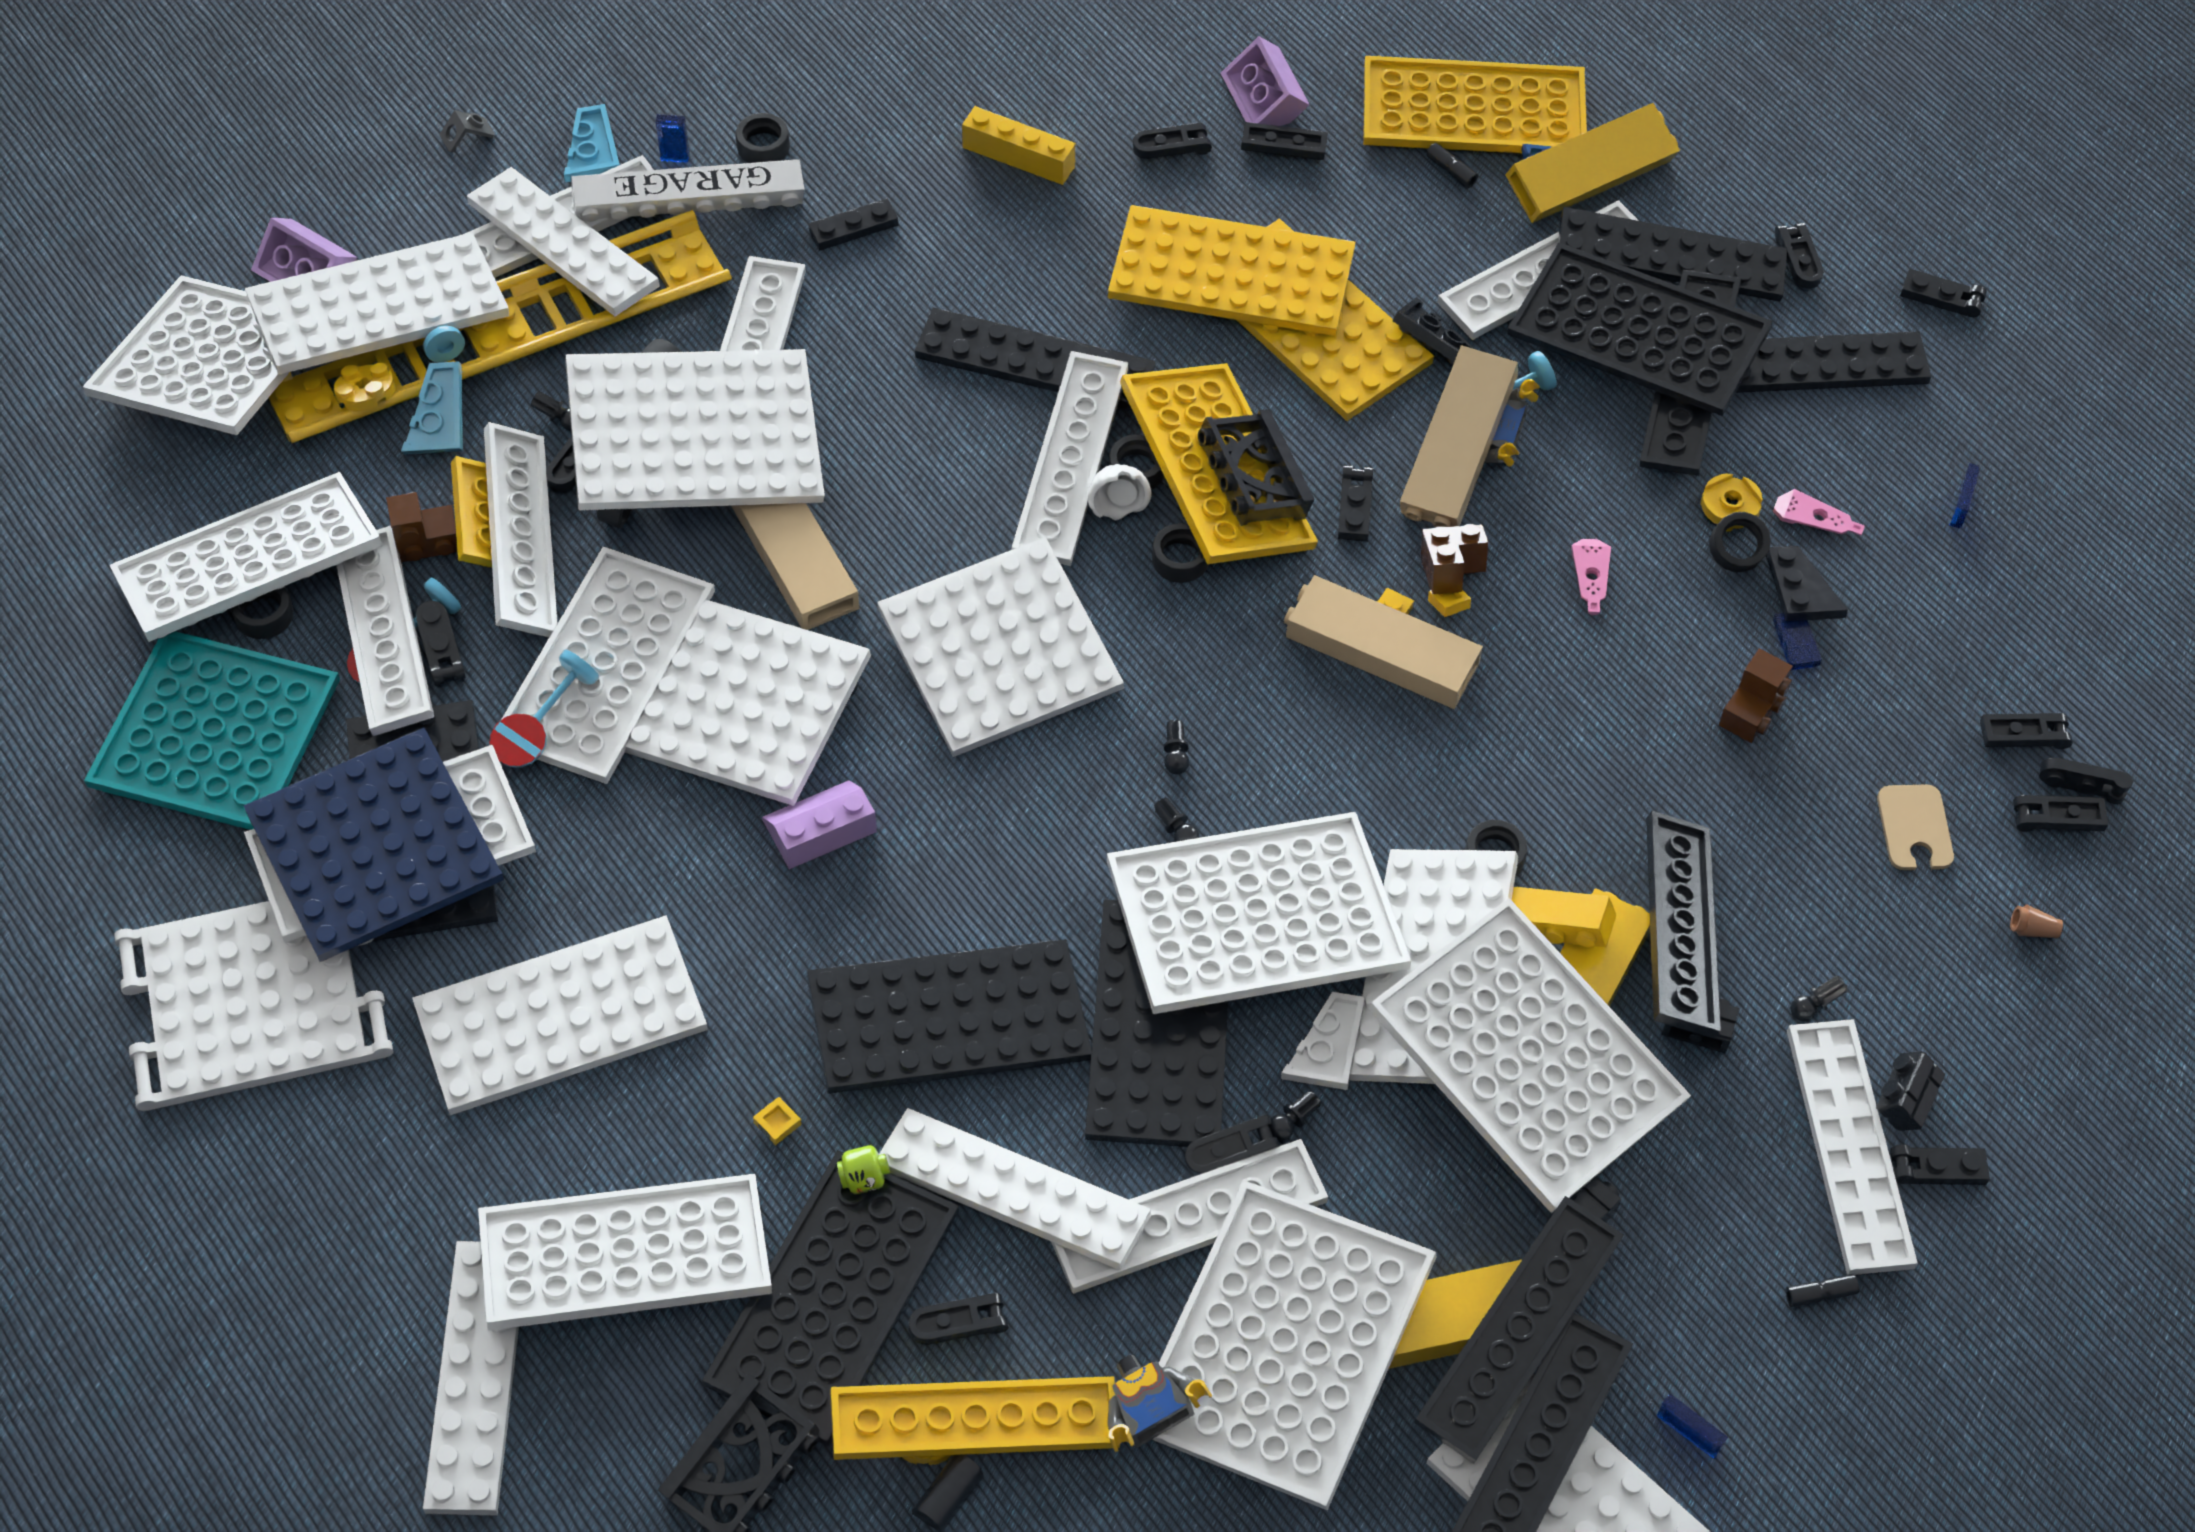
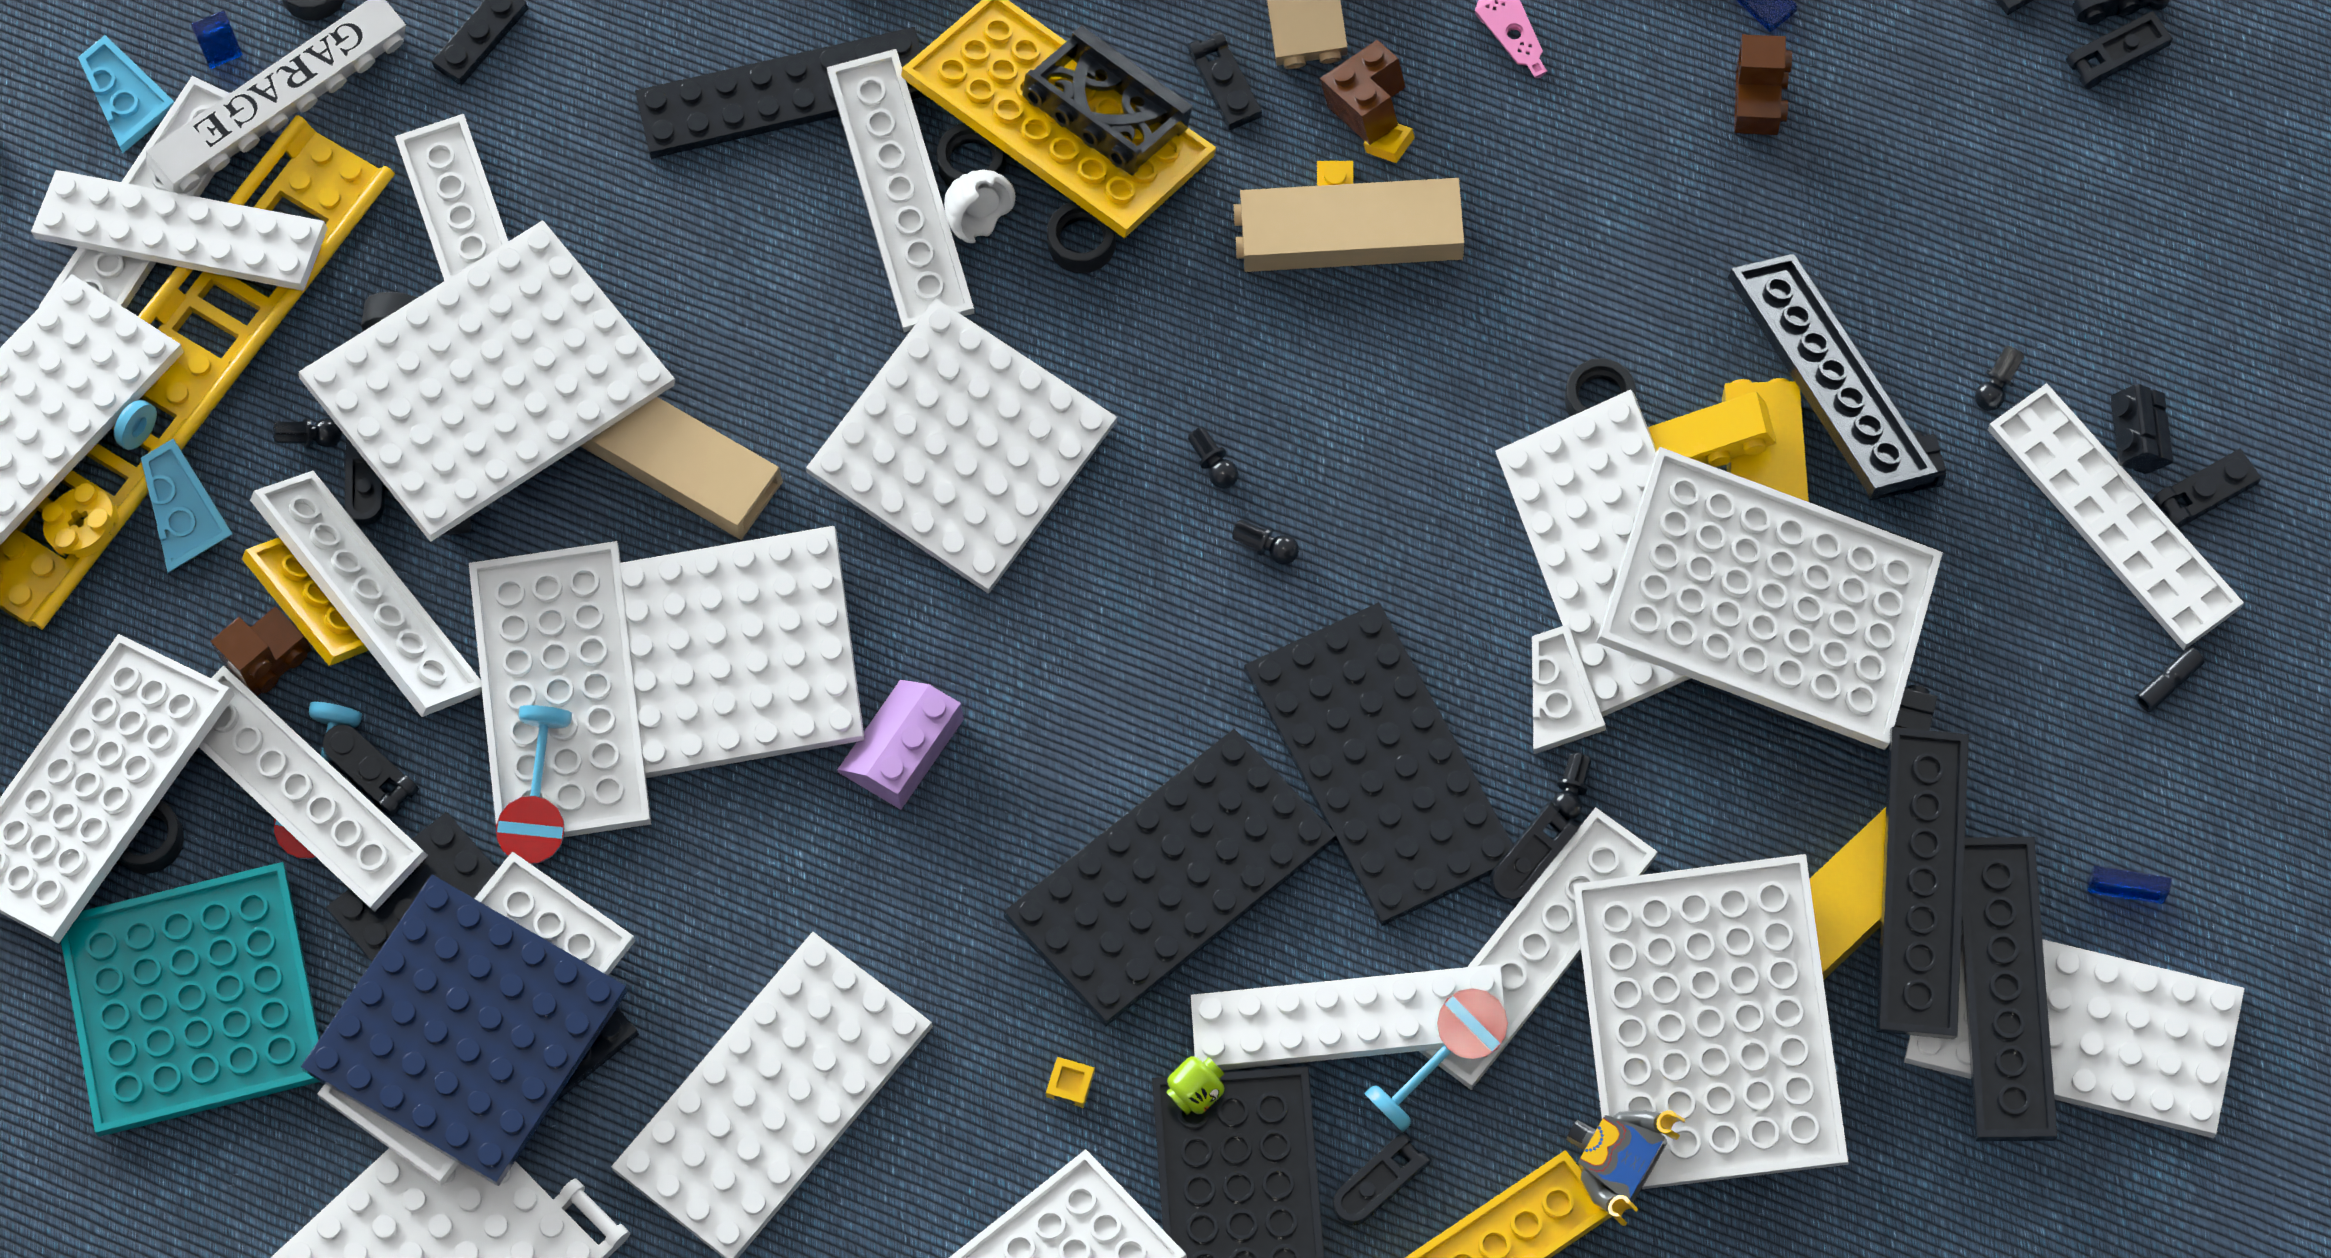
camera: 25 degrees left, 10 degrees up
(1094, 1239) = (1470, 1026): none -> piece
(1256, 912) = (1409, 595): white plate -> none
(1911, 818) = (1980, 133): tan piece -> none
(2035, 923) = (2158, 183): nougat cone -> none

